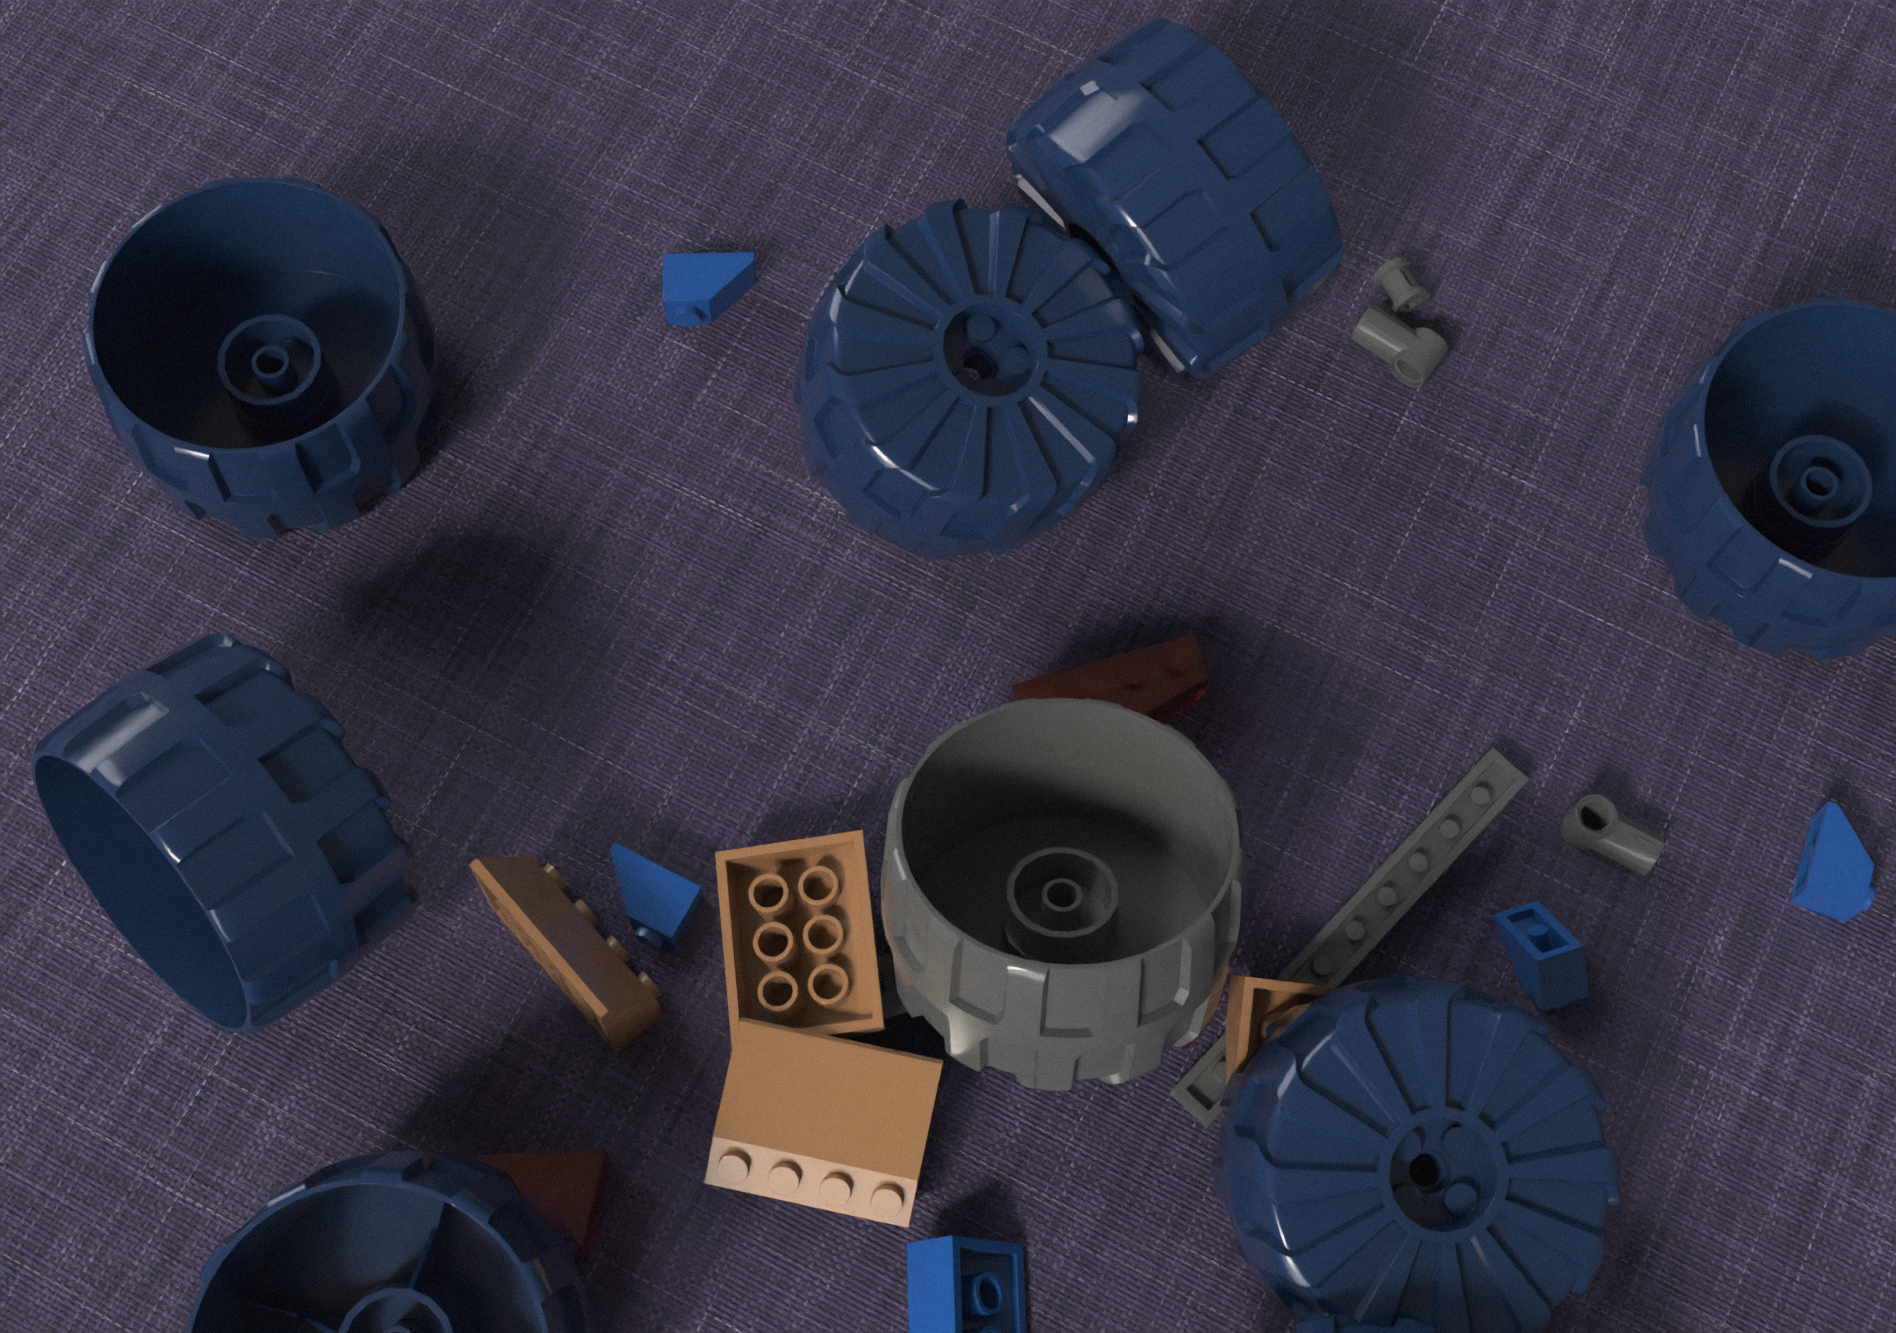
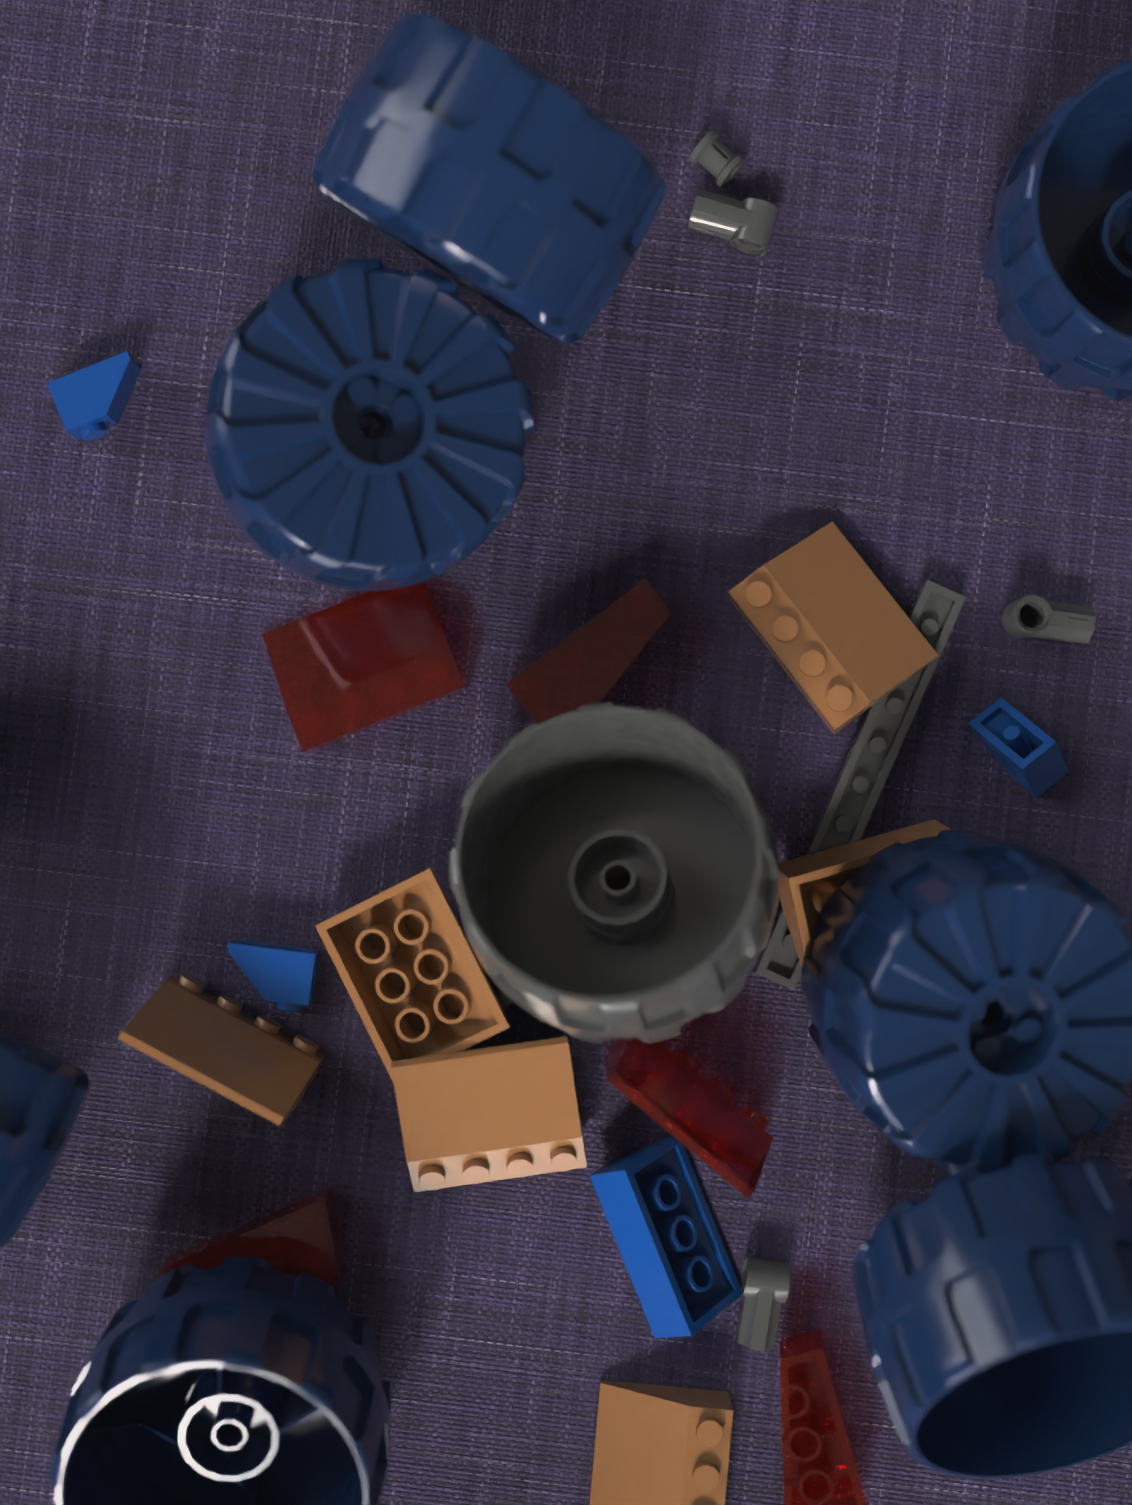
camera: 15 degrees left, 20 degrees up
(869, 627) = (362, 664): none -> clear red slope
(1048, 1197) = (693, 1108): none -> clear red slope
(1373, 757) = (832, 626): none -> medium nougat slope

